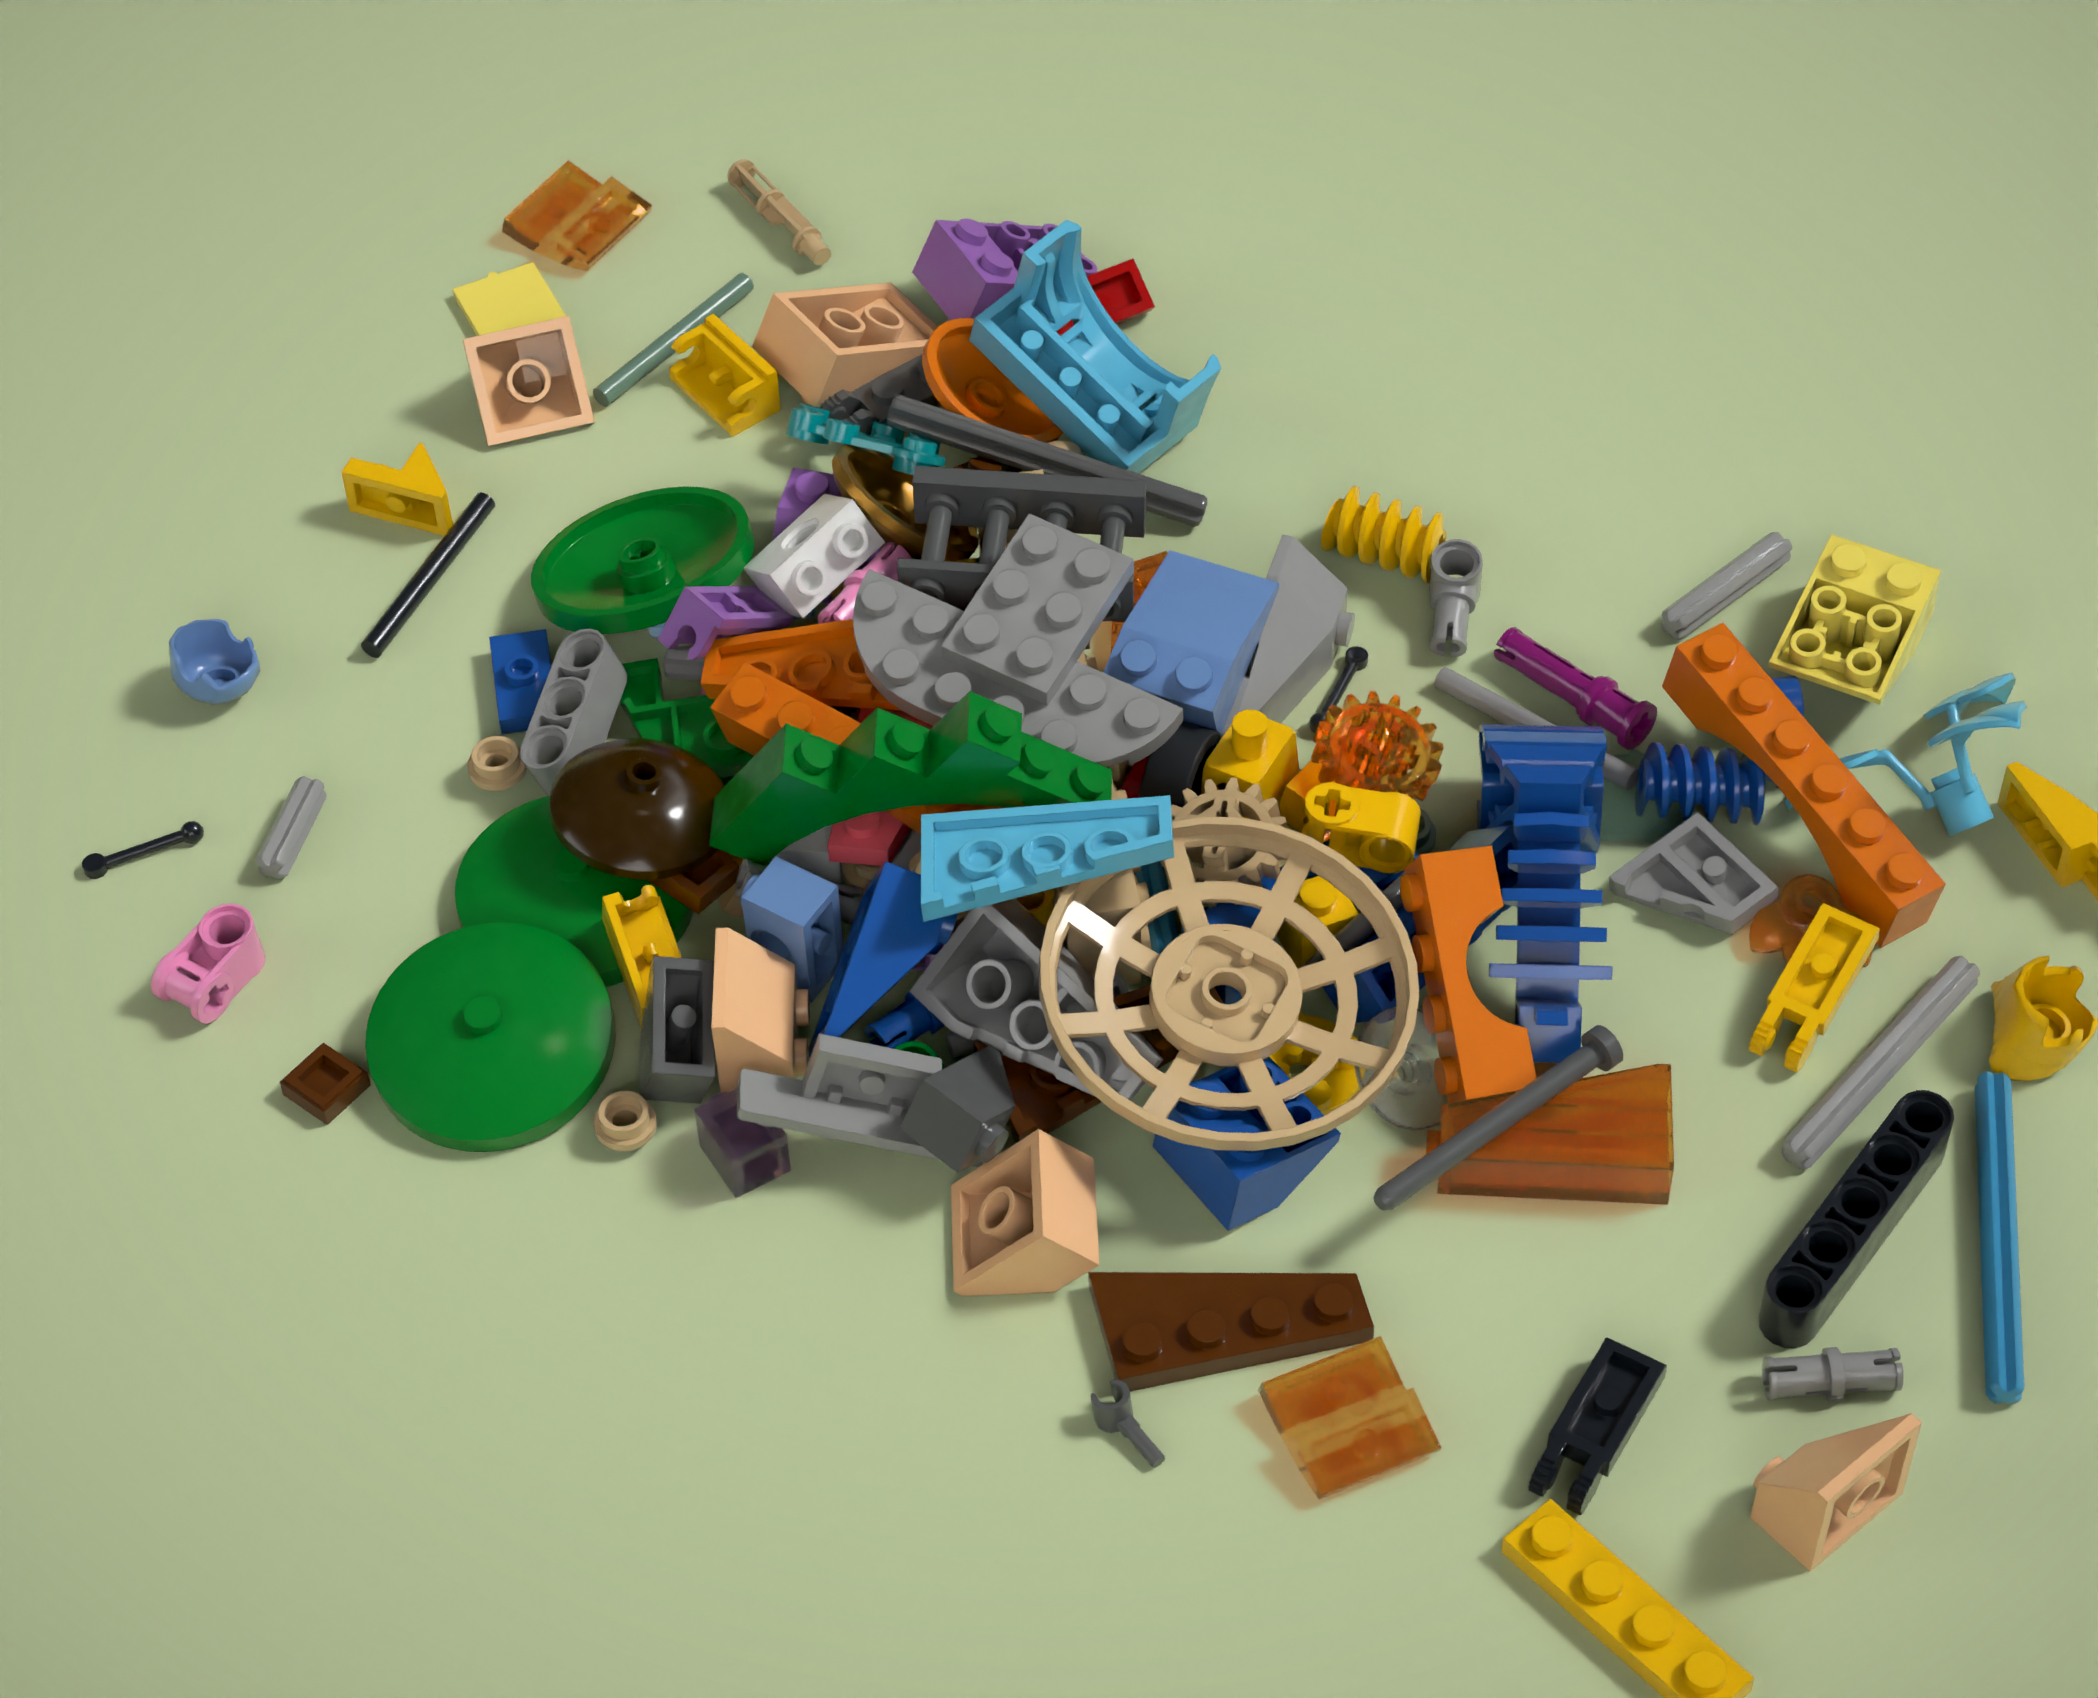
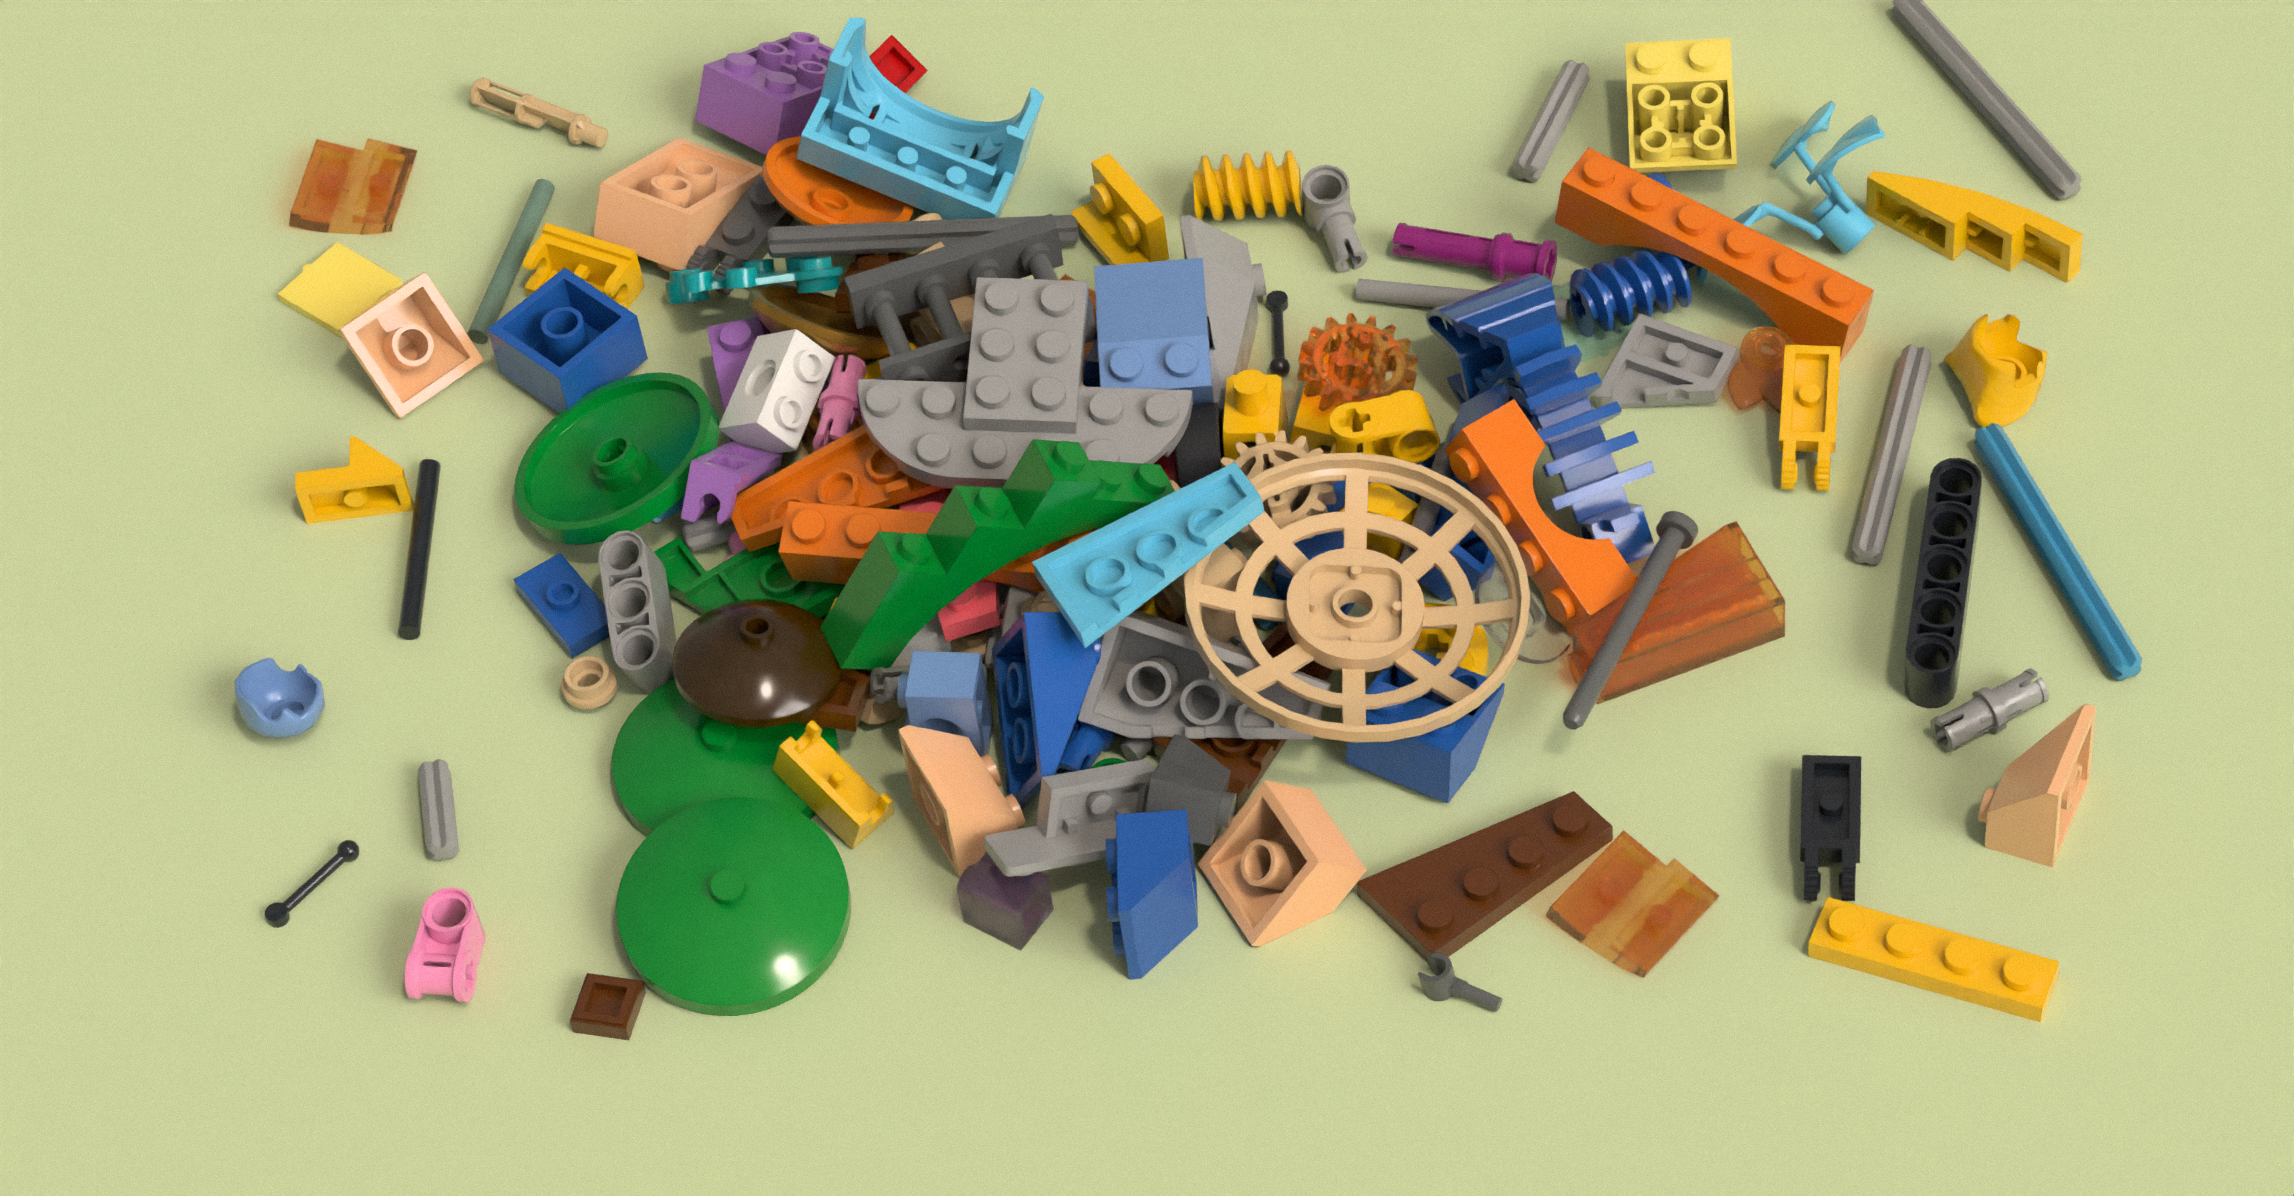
camera: 20 degrees left, 0 degrees up
(625, 1108) = (889, 915): tan plate -> none
(666, 431) = (566, 341): none -> blue brick
(677, 1031) = (903, 832): dark grey slope -> none
(876, 1191) = (1152, 887): none -> blue slope
(1245, 518) = (1121, 217): none -> yellow bracket

